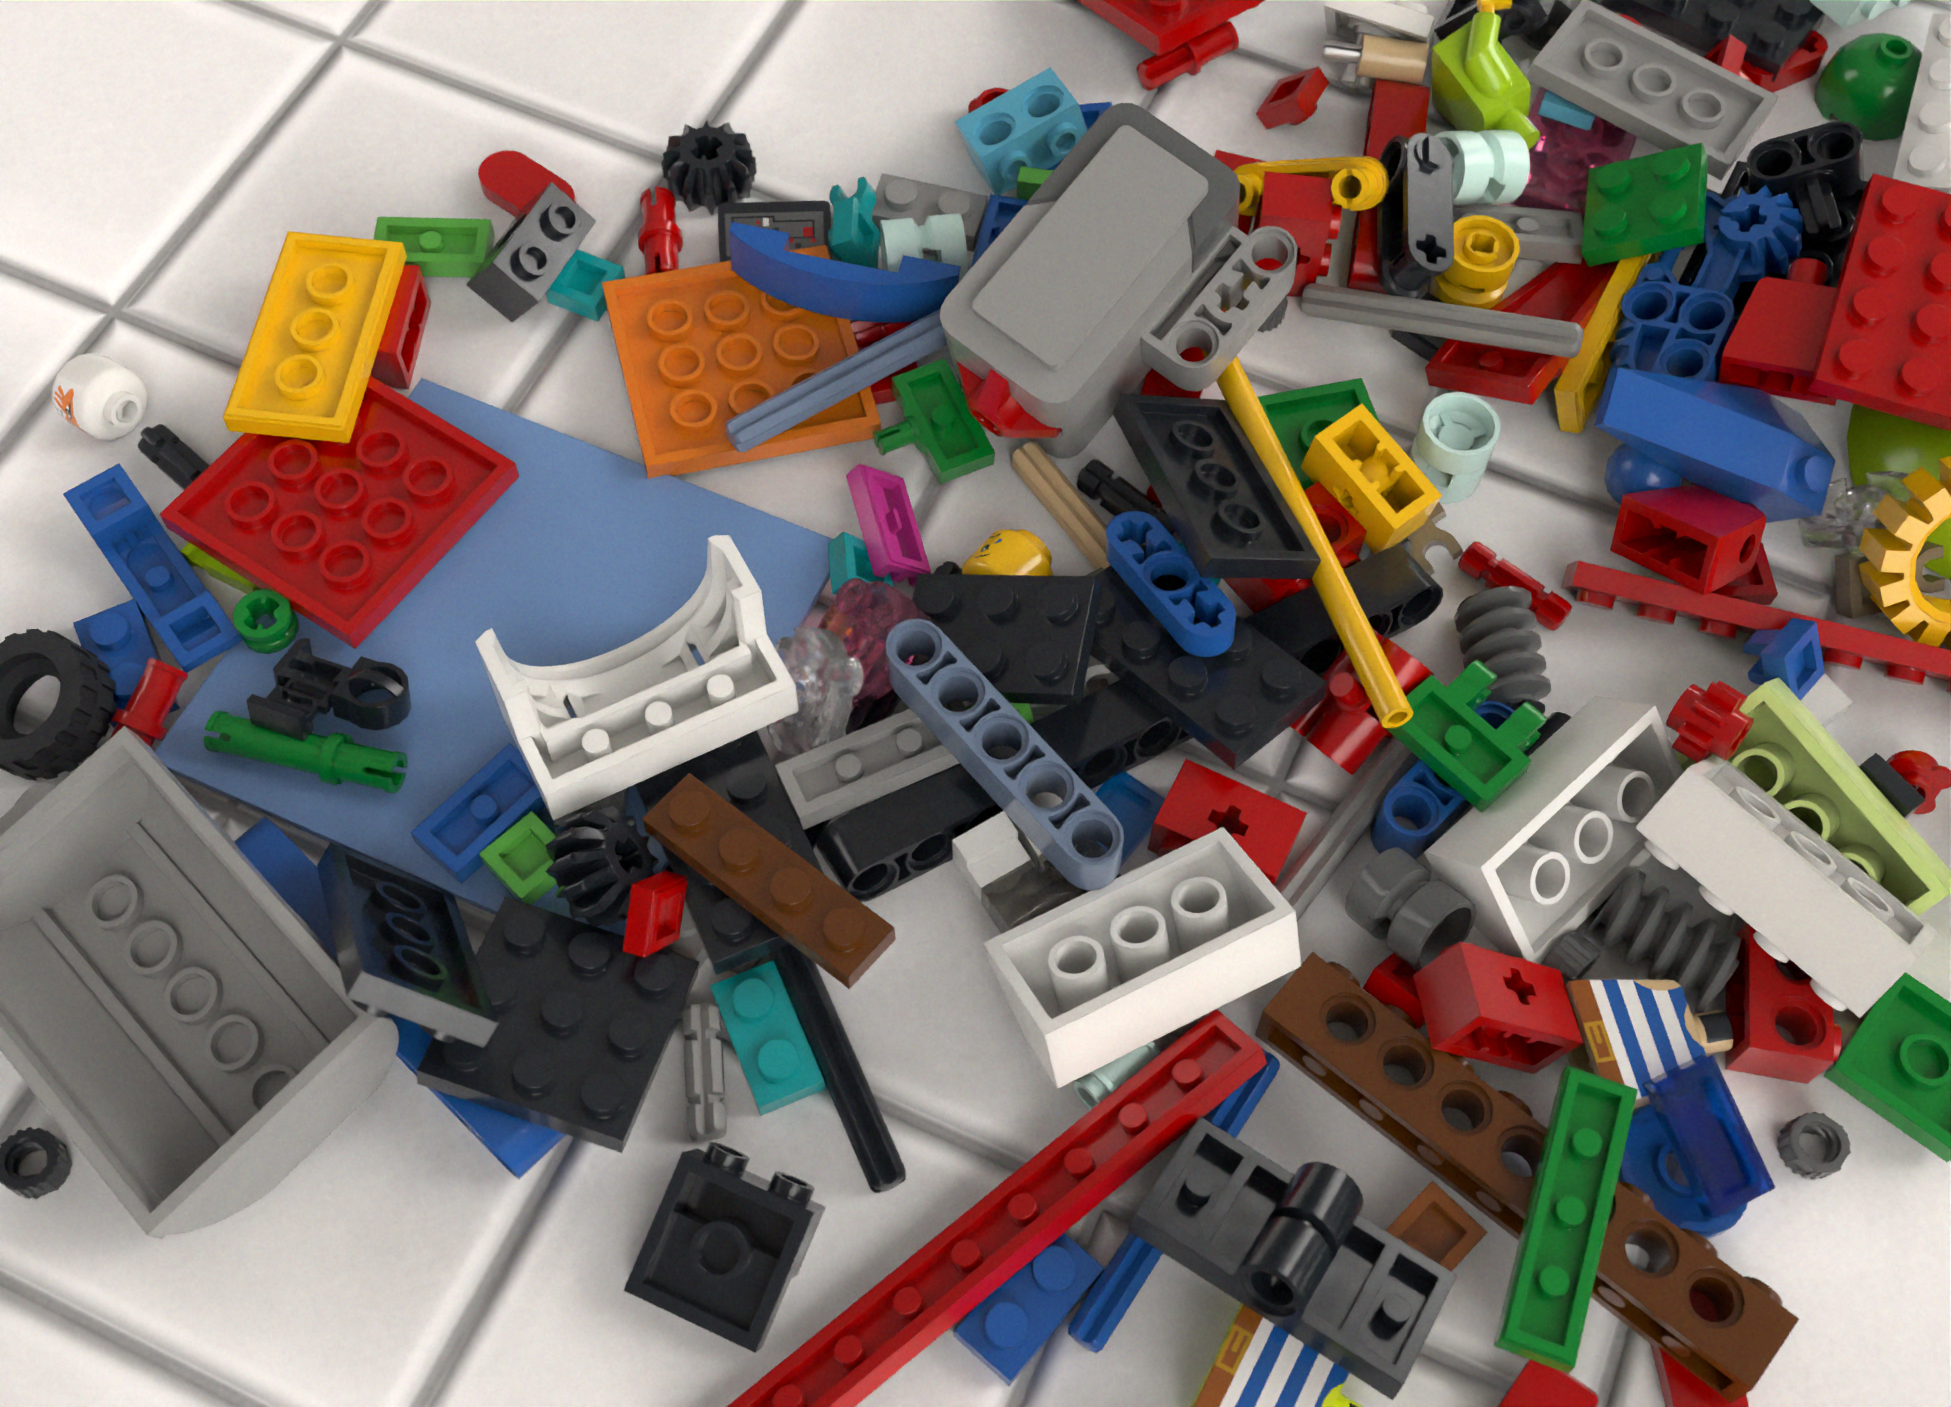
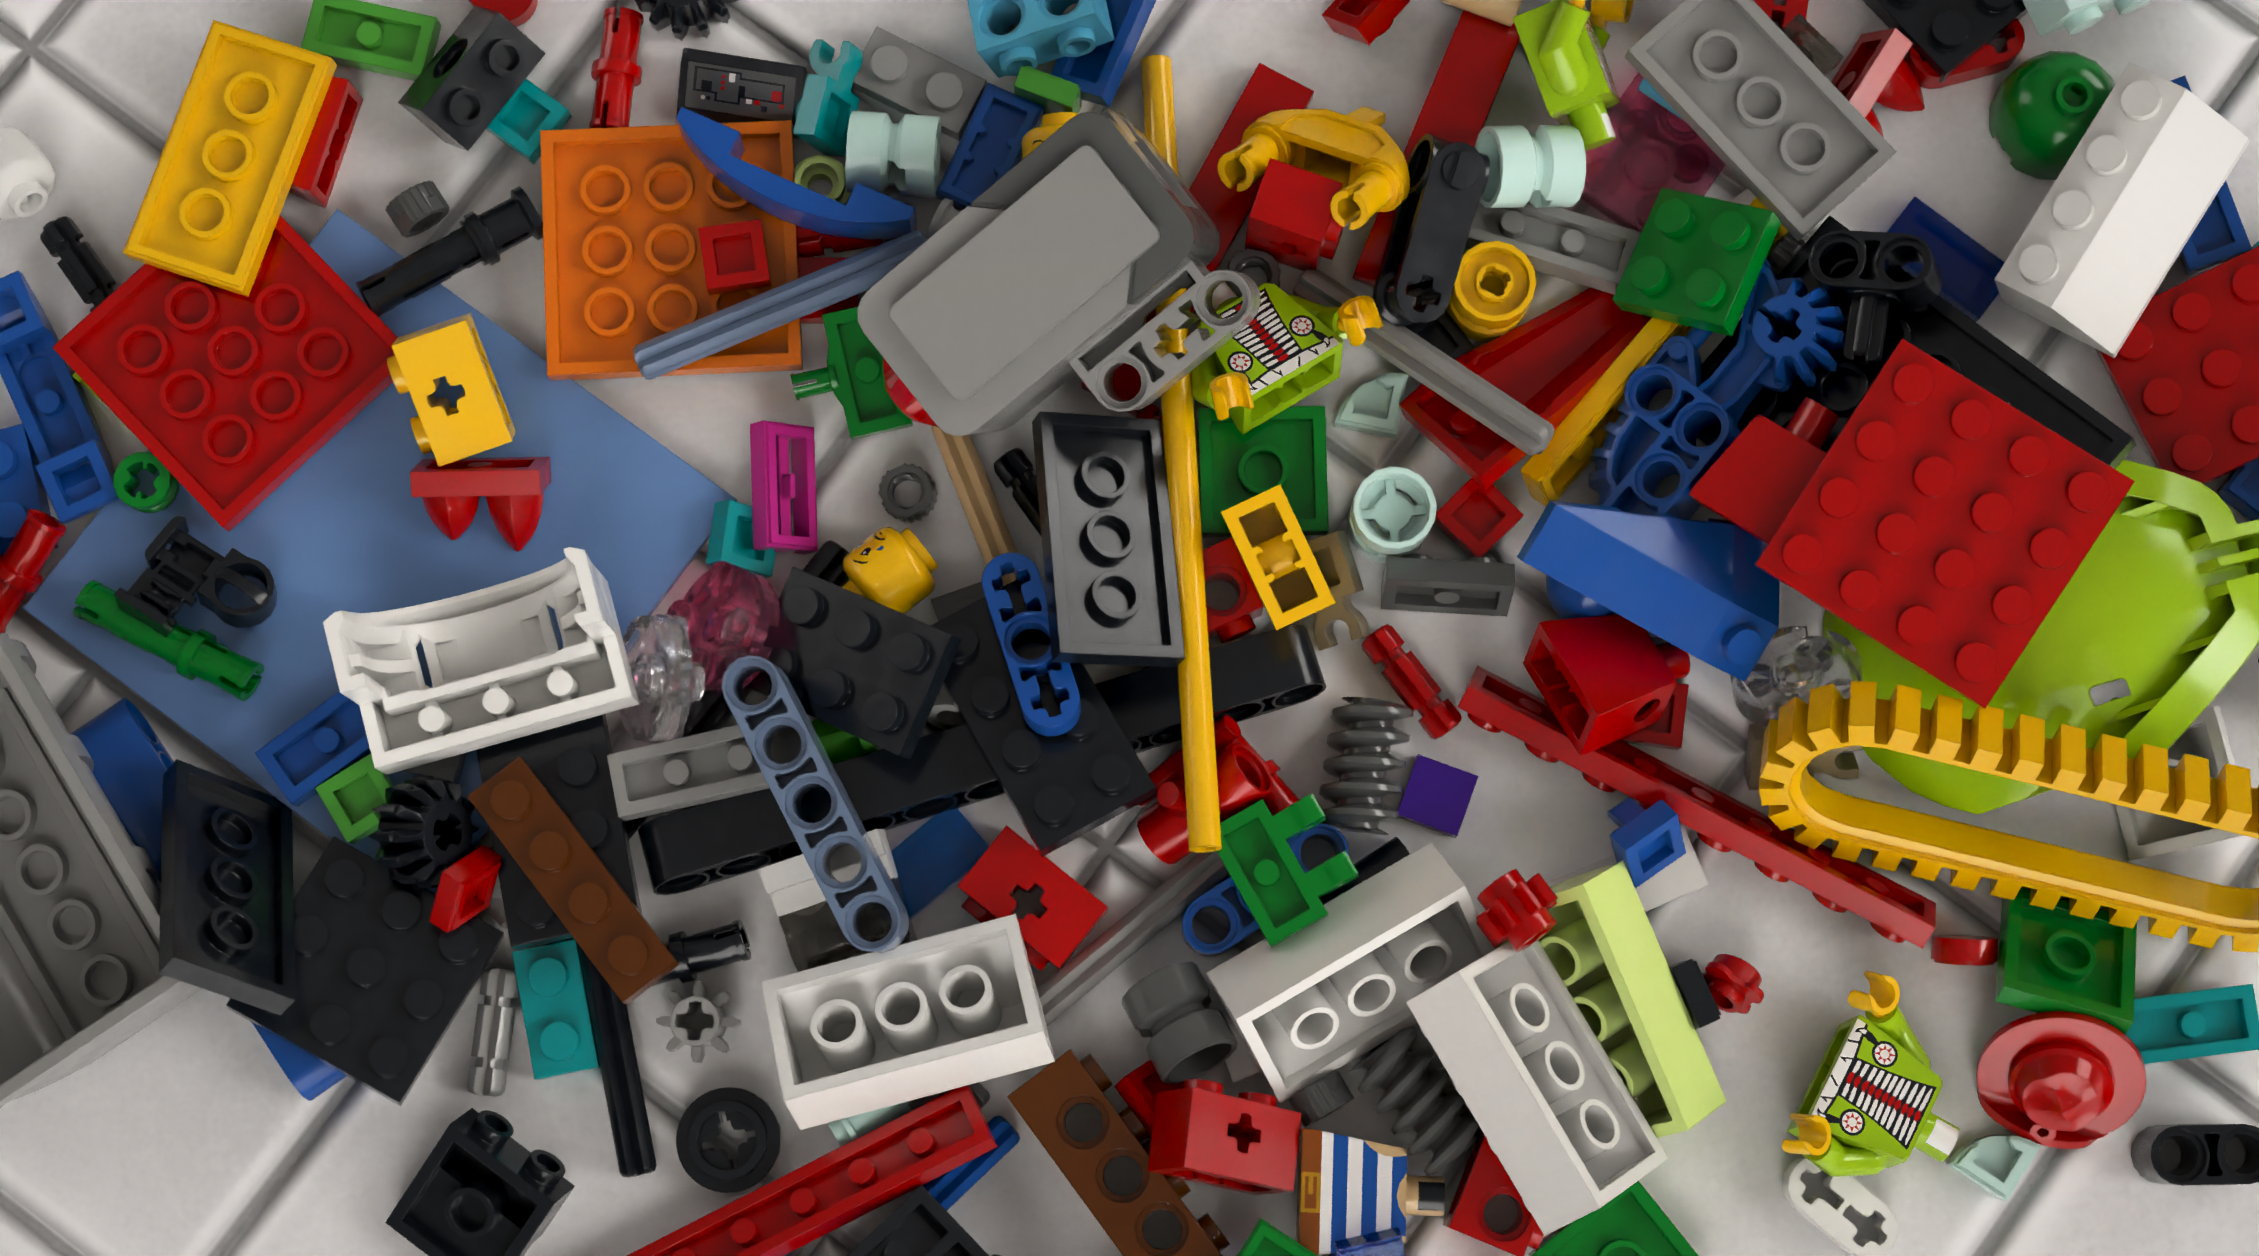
camera: 15 degrees right, 20 degrees up
(497, 365) = (417, 209): none -> dark grey axle
(558, 377) = (478, 240): none -> black pin
(559, 444) = (452, 351): none -> yellow brick
(628, 556) = (511, 489): none -> red tile
(801, 345) = (734, 257): none -> red tile
(913, 945) = (706, 950): none -> black pin
(930, 994) = (688, 1007): none -> light grey gear
(988, 1099) = (703, 1122): none -> black gear
(1002, 500) = (904, 473): none -> dark grey axle
(1315, 337) = (1279, 355): none -> torso
(1401, 382) = (1374, 406): none -> light aqua tile
(1520, 498) = (1447, 586): none -> dark grey plate
(1526, 443) = (1477, 518): none -> red plate
(1574, 674) = (1436, 796): none -> dark purple tile

